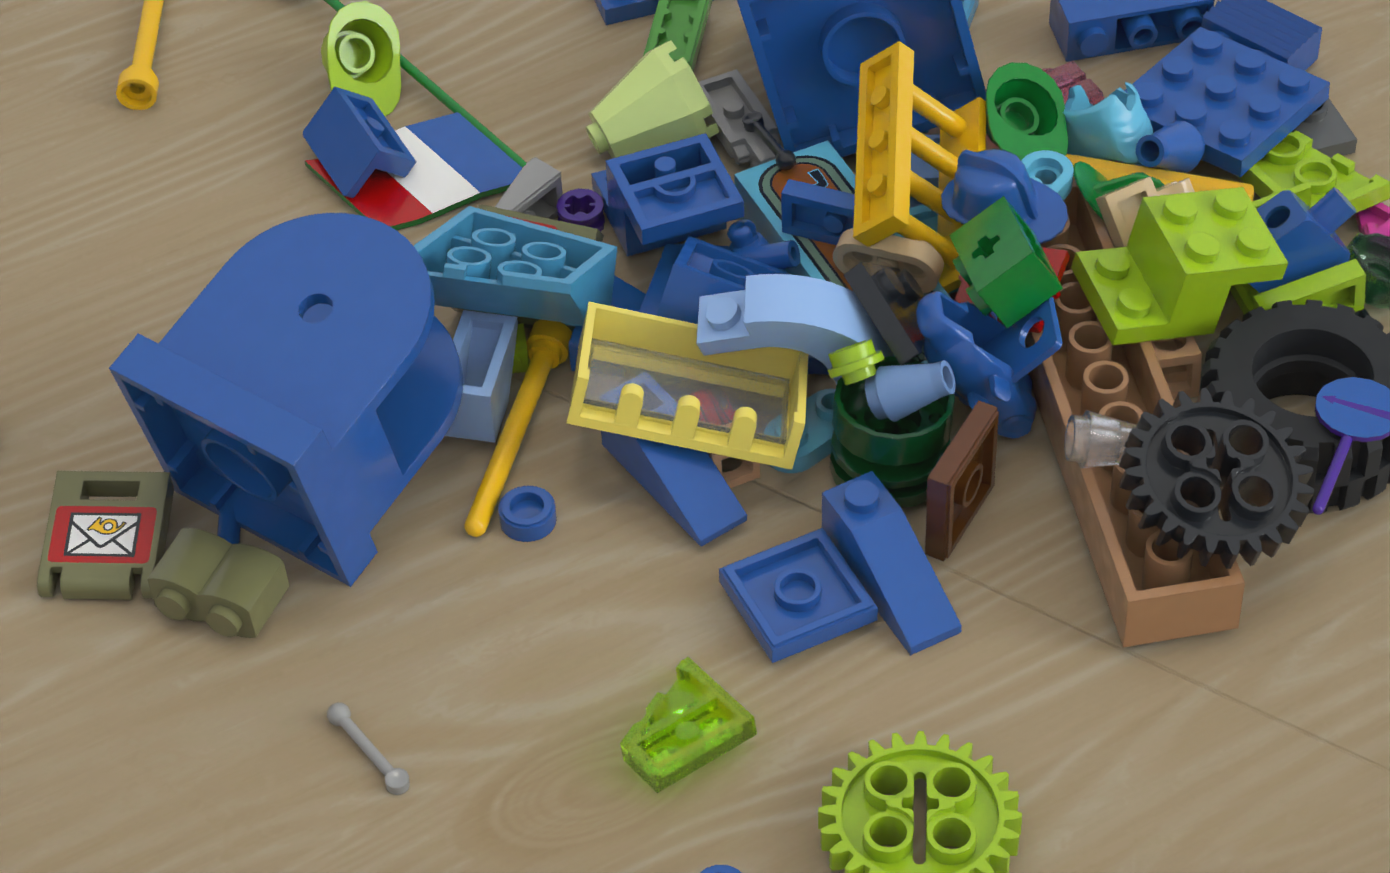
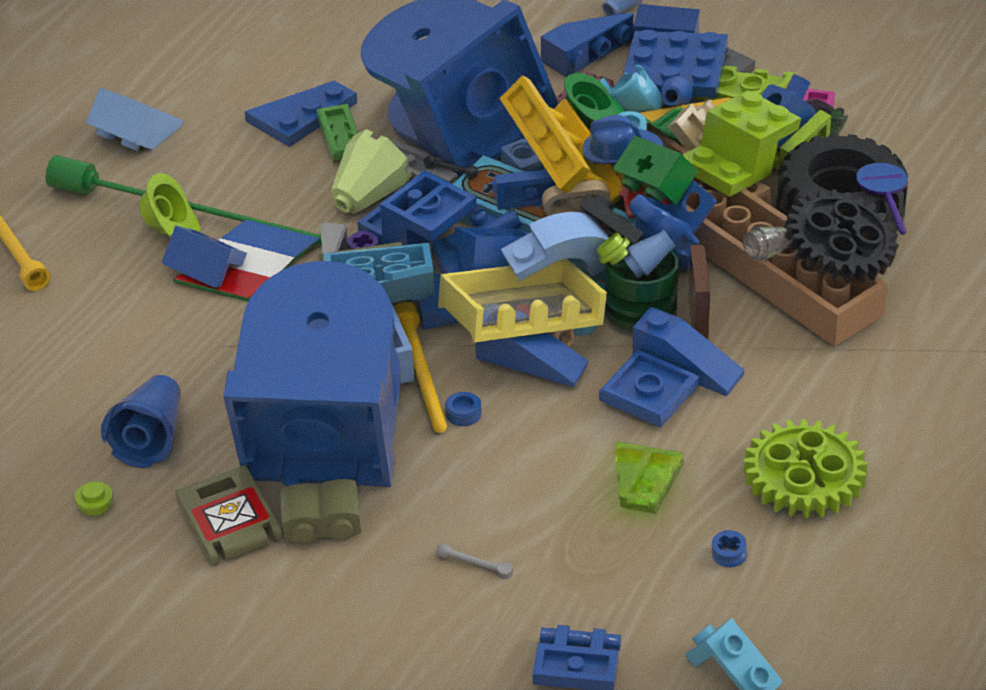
camera: 30 degrees left, 5 degrees down
(83, 344) = (144, 423): none -> blue cone

